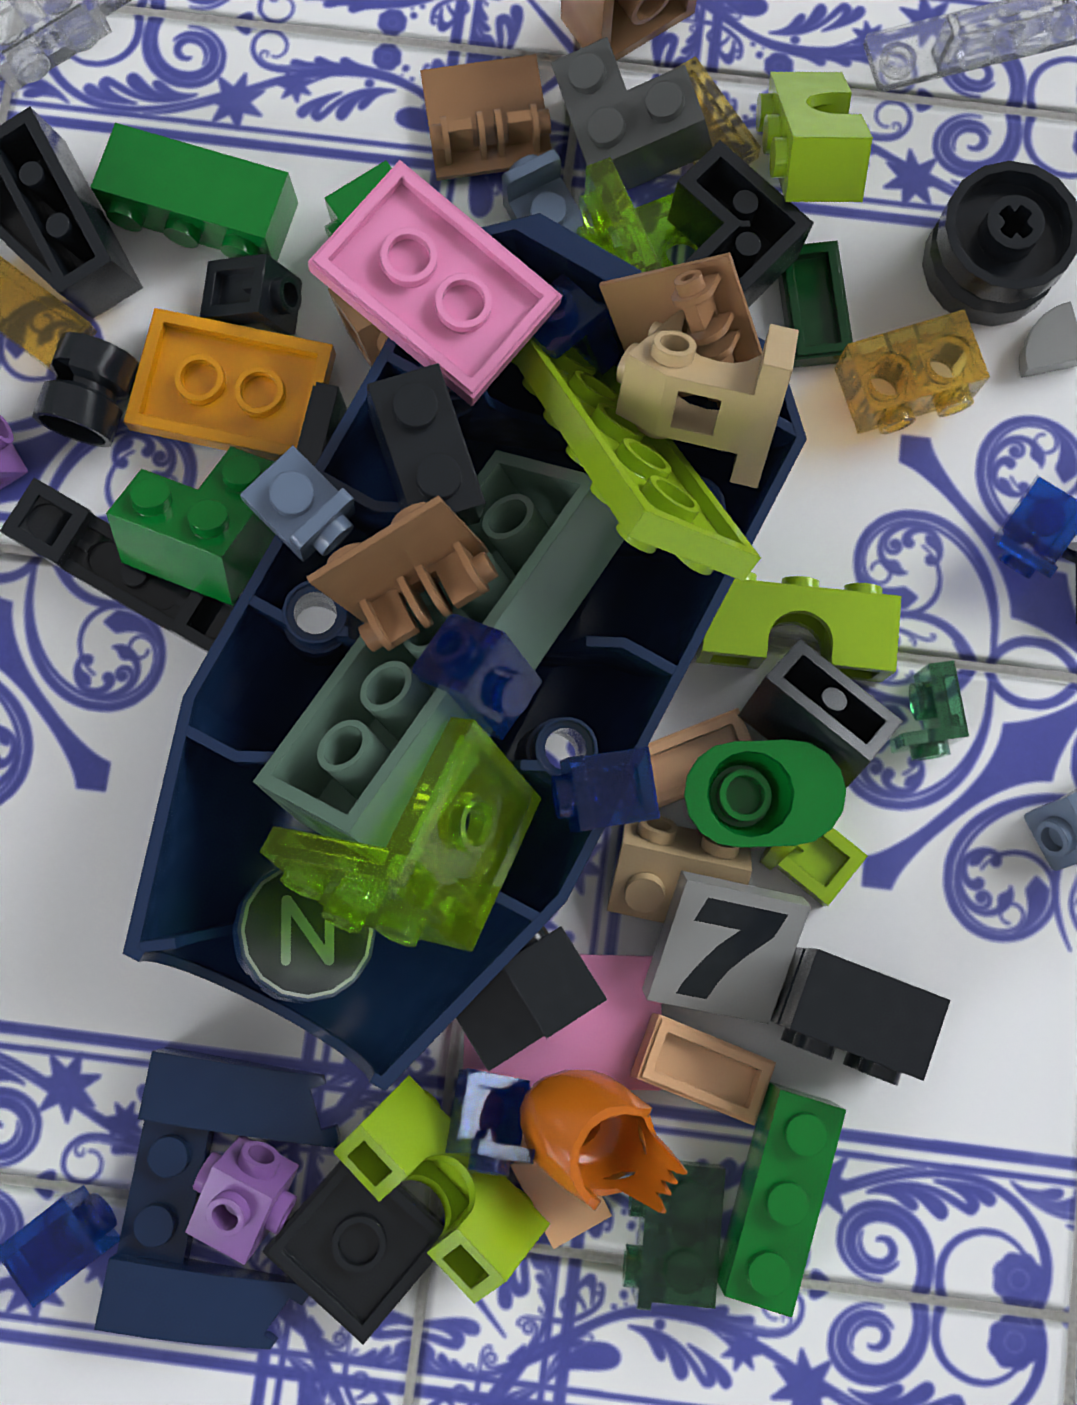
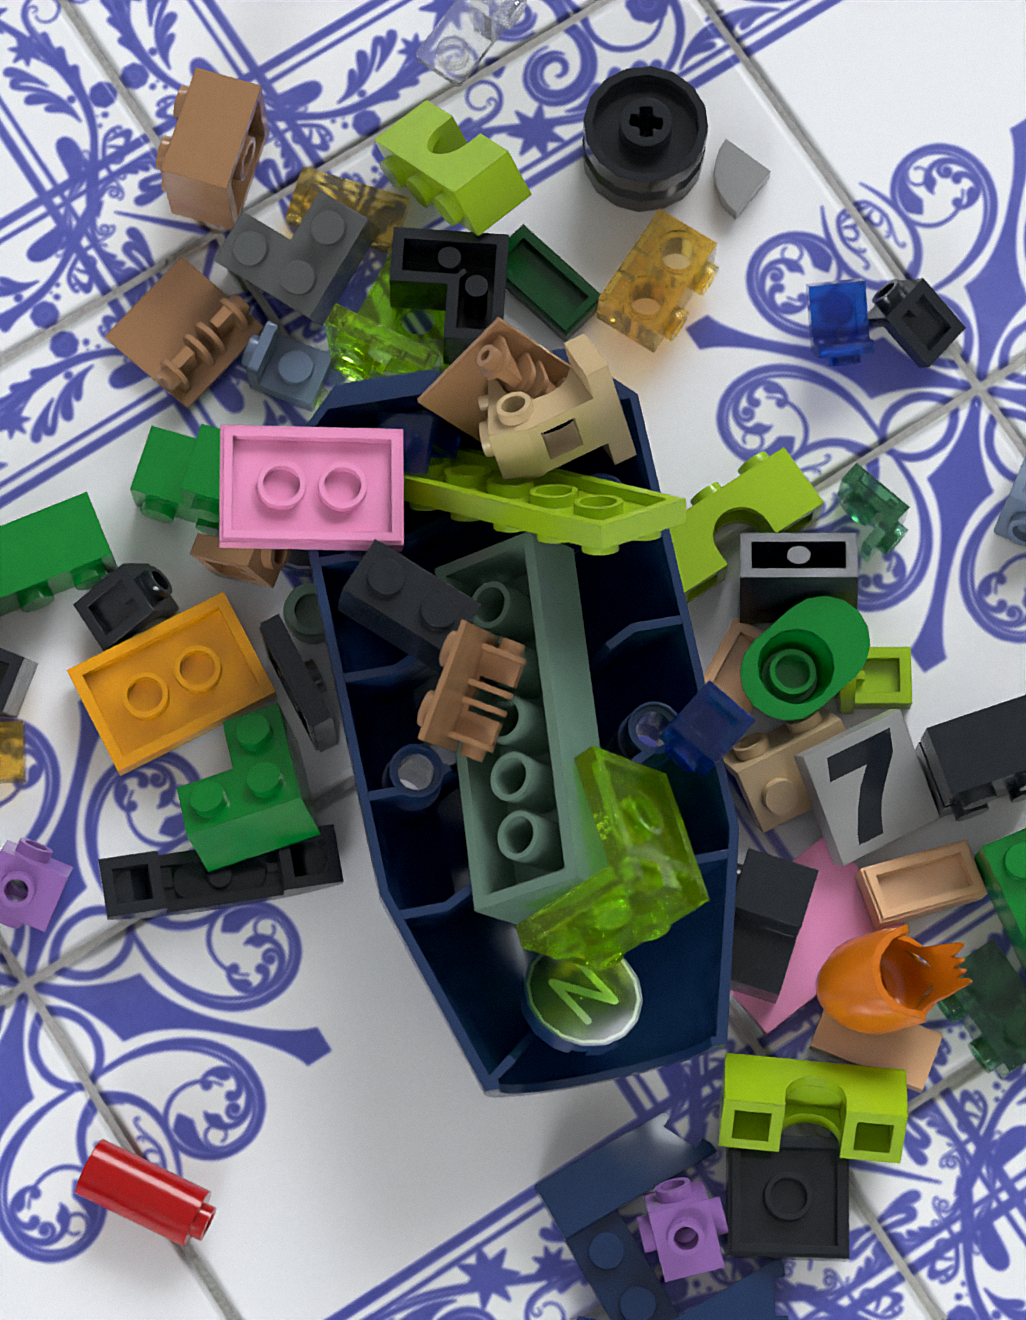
camera: 40 degrees left, 5 degrees down
(86, 389) = (68, 764): black wheel -> none
(301, 505) = (353, 706): sand blue bracket -> none
(479, 672) = (565, 714): clear blue bracket -> none
(488, 1122) = (806, 1033): bracket -> none

